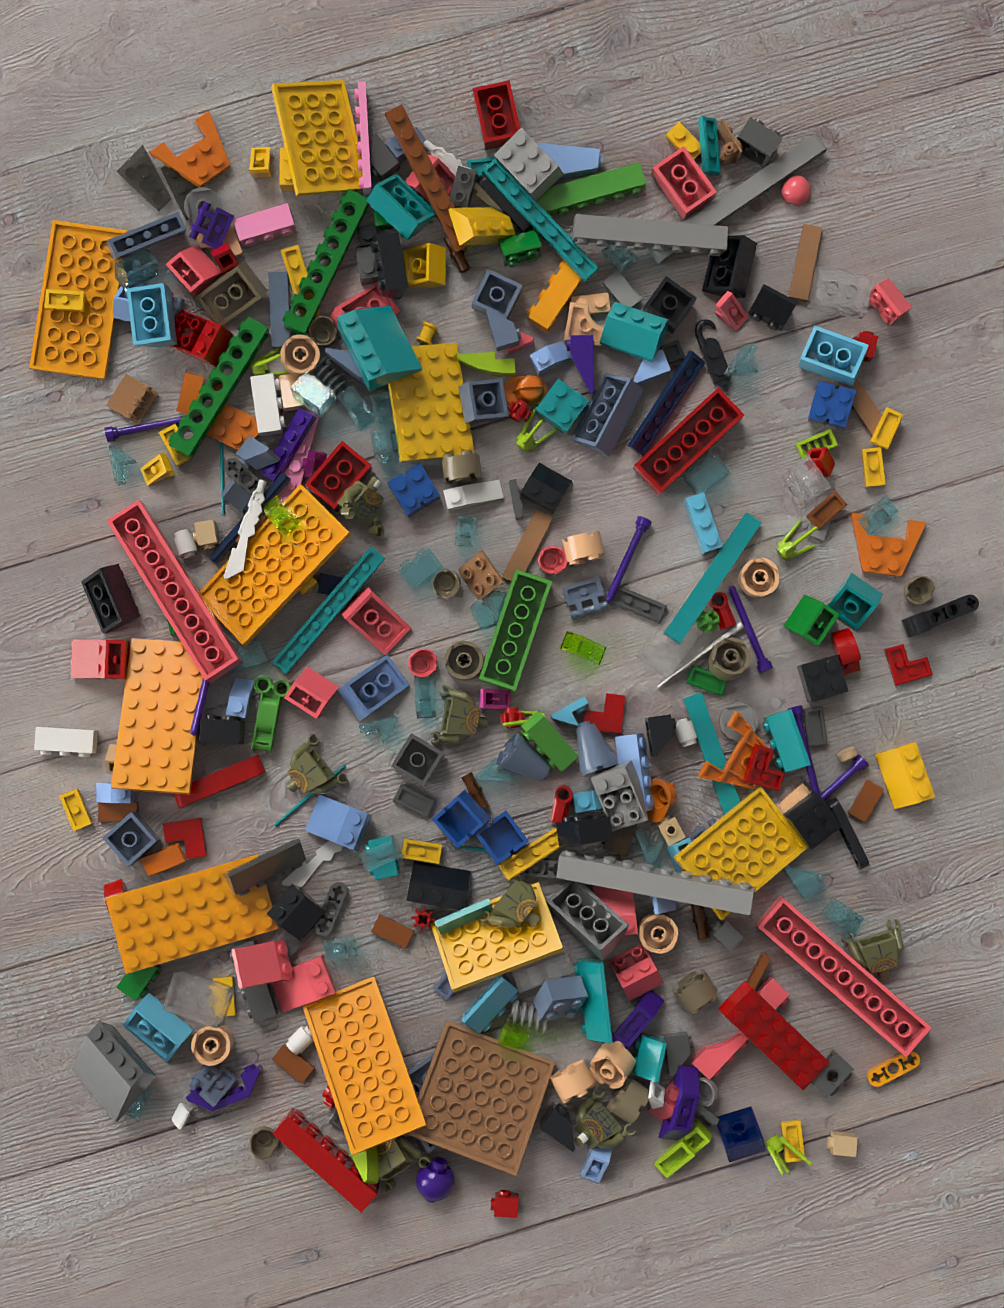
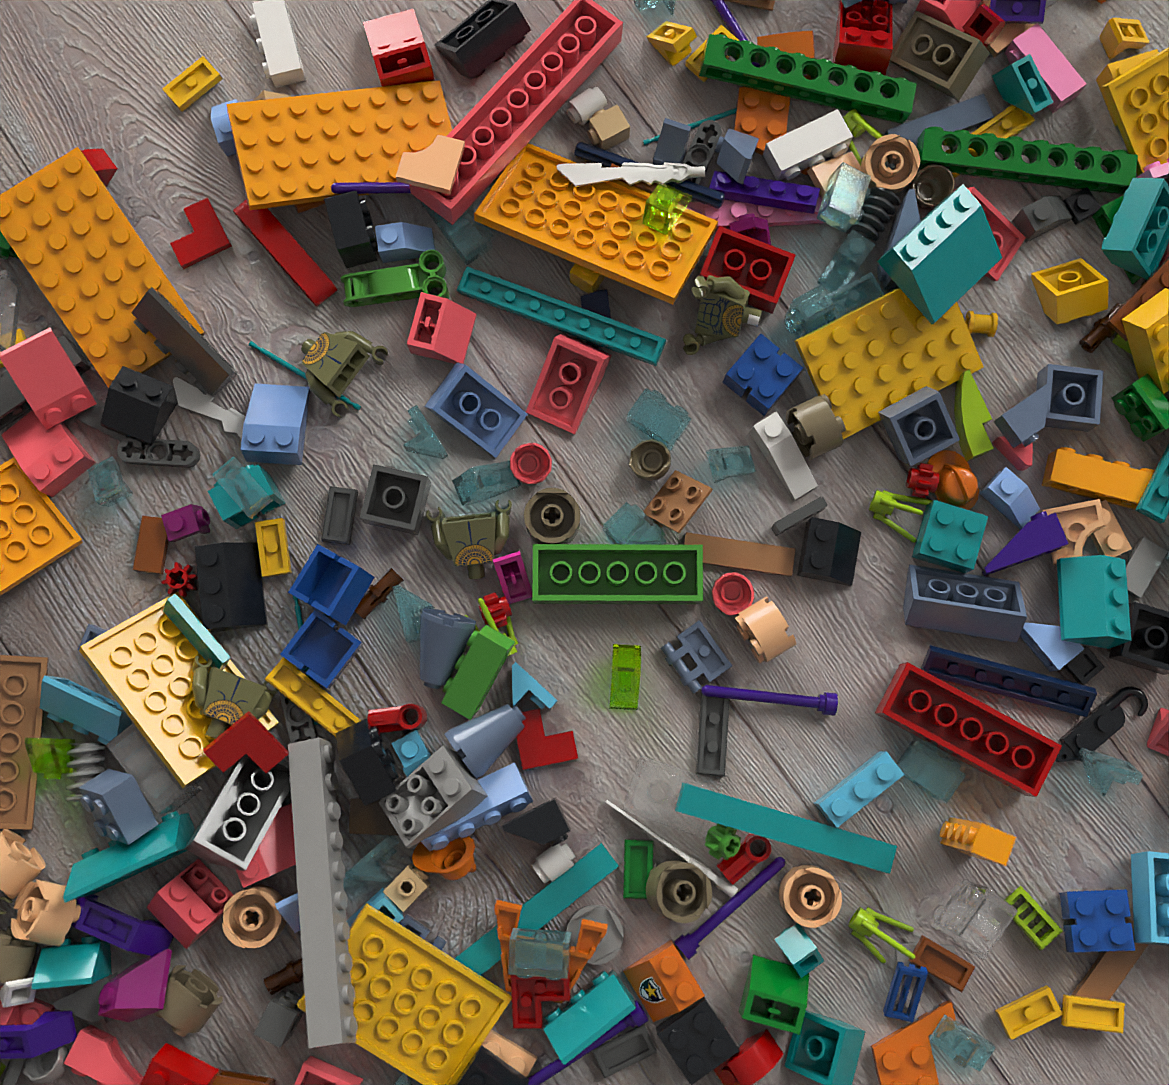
camera: 70 degrees right, 5 degrees down
(115, 811) = (205, 139): dark orange tile -> none
(131, 838) = (173, 162): sand blue brick -> none
(163, 859) = (159, 213): orange slope -> none
(204, 661) = (433, 167): none -> light nougat tile
(273, 245) = (1023, 86): none -> teal slope
(386, 903) = (186, 522): none -> magenta bracket
(390, 265) = (1056, 238): black slope -> none
(545, 900) = (248, 738): none -> red tile
(678, 1018) = (137, 989): none -> magenta slope
(739, 758) = (539, 953): none -> clear light blue brick
(758, 463) = (977, 840): none -> light orange brick
(781, 687) = (663, 982): none -> orange slope
(789, 596) = (799, 950): none -> brick
(823, 460) = (1015, 935): red brick -> none
(825, 532) = (909, 971): none -> blue tile

